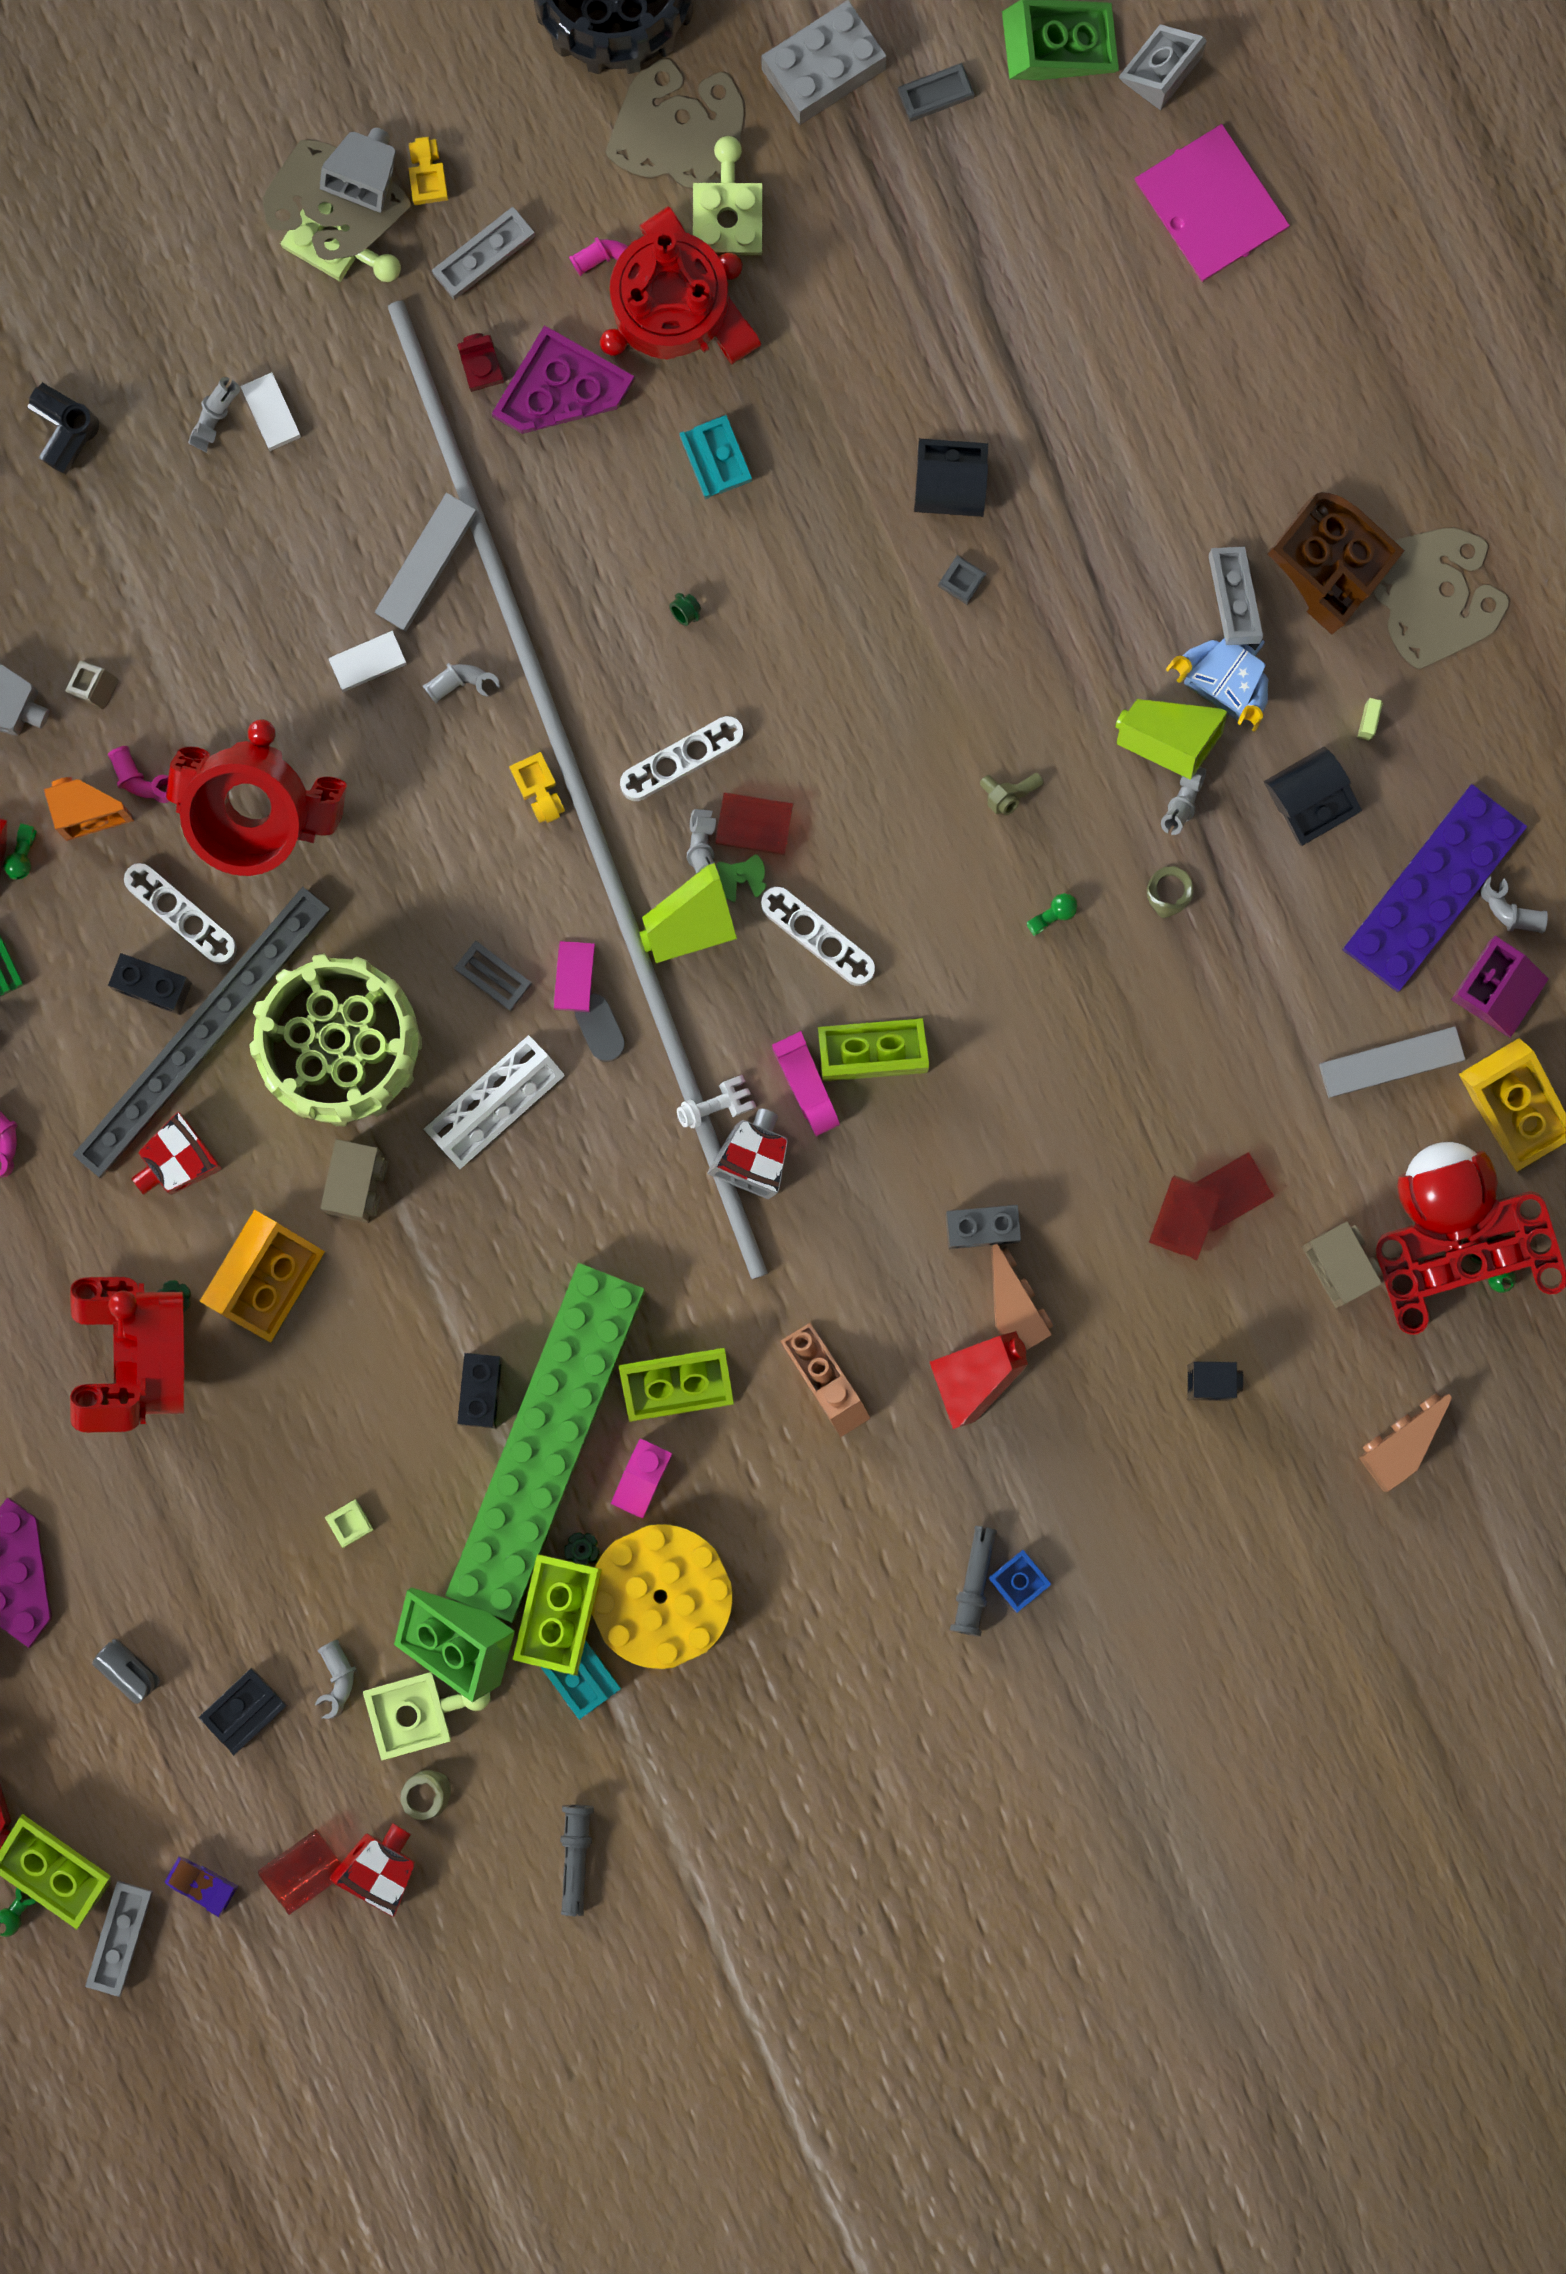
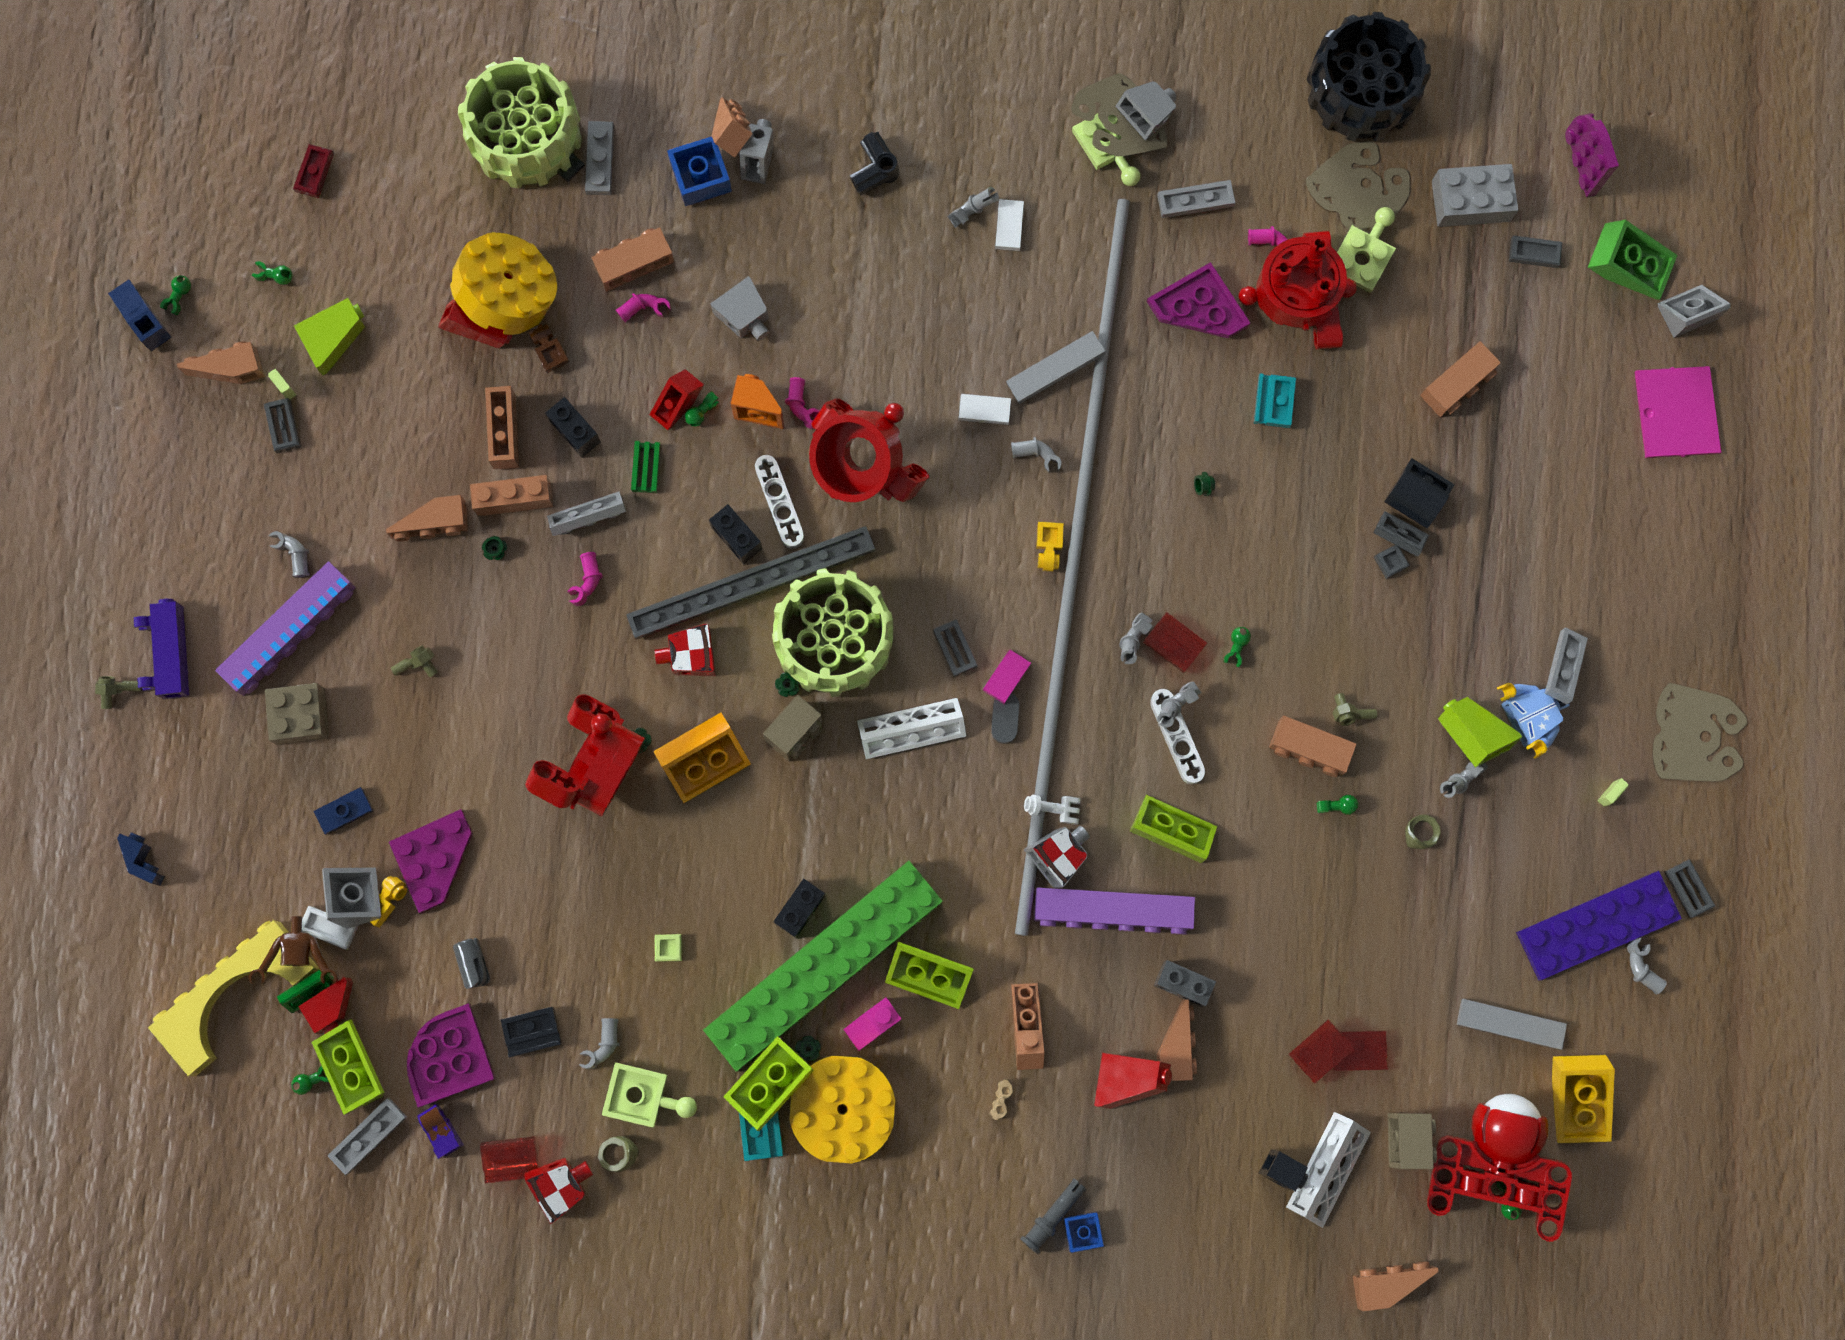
camera: 25 degrees right, 5 degrees down
(92, 684) = (804, 331): dark tan slope -> none
(161, 1795) = (448, 1057): none -> magenta plate
(315, 1141) = (785, 691): none -> dark green plate
(427, 179) = (1186, 136): yellow plate -> none
(454, 1642) = (692, 1064): bright green slope -> none
(480, 362) = (1157, 263): dark red bracket -> none
(576, 1841) = (697, 1241): dark grey pin -> none
(679, 754) = (1150, 572): white beam -> none
(689, 918) = (1101, 679): lime slope -> none
(751, 870) = (1156, 671): bright green piece -> none
(792, 905) = (1172, 706): none -> light grey piece
(805, 1083) = (1118, 826): dark pink leg -> none
(830, 781) = (1239, 642): none -> green arm
(839, 1472) = (998, 1106): none -> tan piece
(853, 1185) = (1114, 909): none -> medium lavender brick
(928, 307) = (1461, 380): none -> nougat brick
(955, 545) = (1399, 534): none -> dark grey tile
(984, 860) = (1312, 746): none -> nougat brick
(1261, 1350) = (1325, 1167): none -> white fence
(1313, 795) = (1550, 821): black brick -> none
(1334, 557) = (1644, 676): reddish brown slope -> none
(1500, 986) = (1611, 1013): magenta slope -> none
(1509, 794) = (1670, 873): none -> dark grey tile

